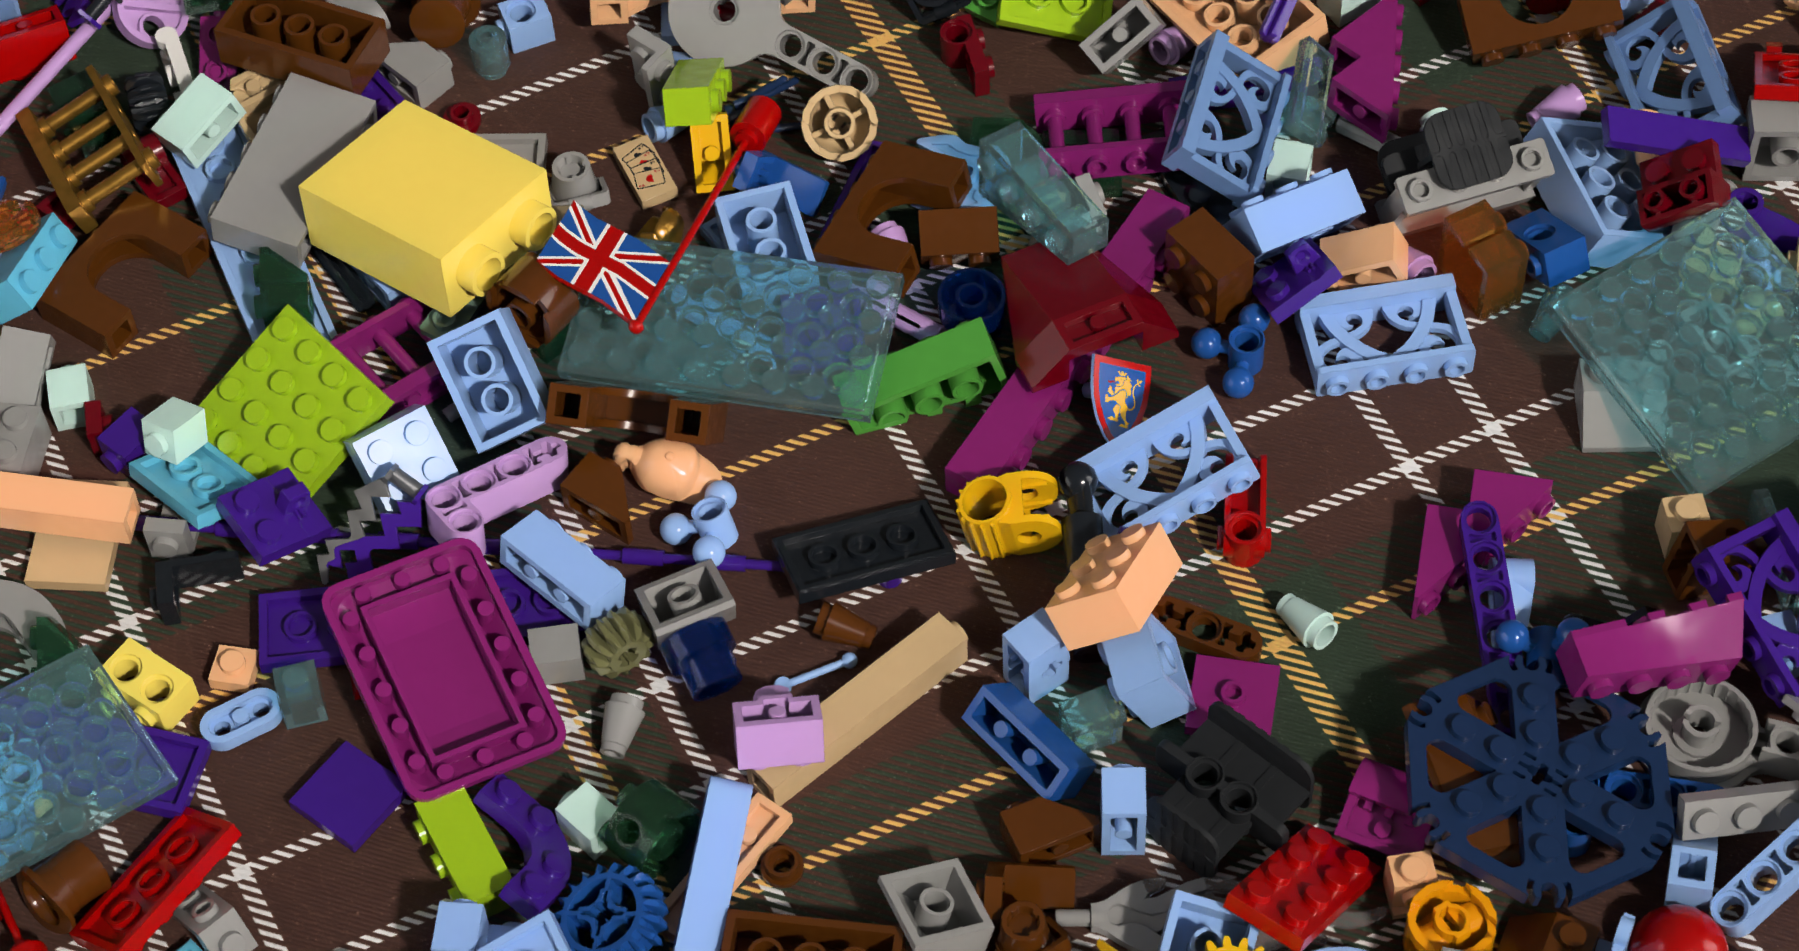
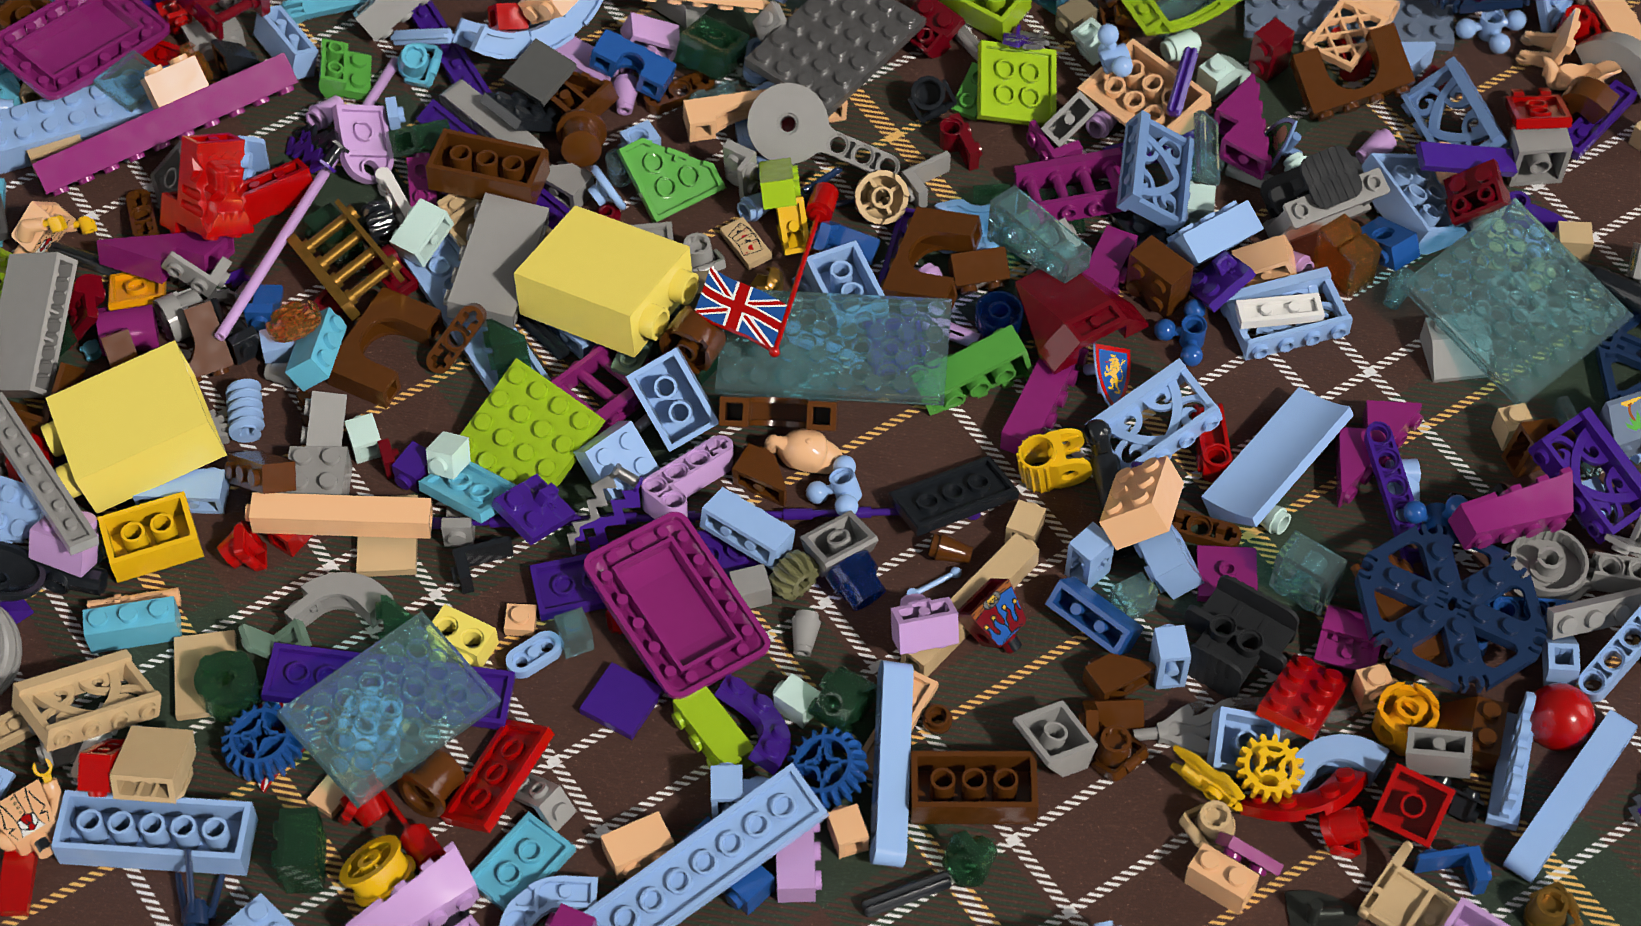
camera: 10 degrees left, 0 degrees up
(234, 265) = (438, 348): none -> reddish brown beam
(462, 81) = (604, 191): none -> light blue piece
(551, 72) = (668, 178): none -> bright green plate
(883, 727) = (994, 615): none -> torso
(906, 94) = (918, 174): none -> light grey bracket
(959, 598) = (1026, 520): none -> tan brick
(1076, 60) = (1039, 141): none -> magenta bracket
(1328, 540) = (1275, 458): none -> light blue arch
(1343, 709) = (1307, 573): none -> clear light blue brick
(1372, 330) = (1279, 310): none -> white plate
(1418, 91) = (1282, 139): none -> shield

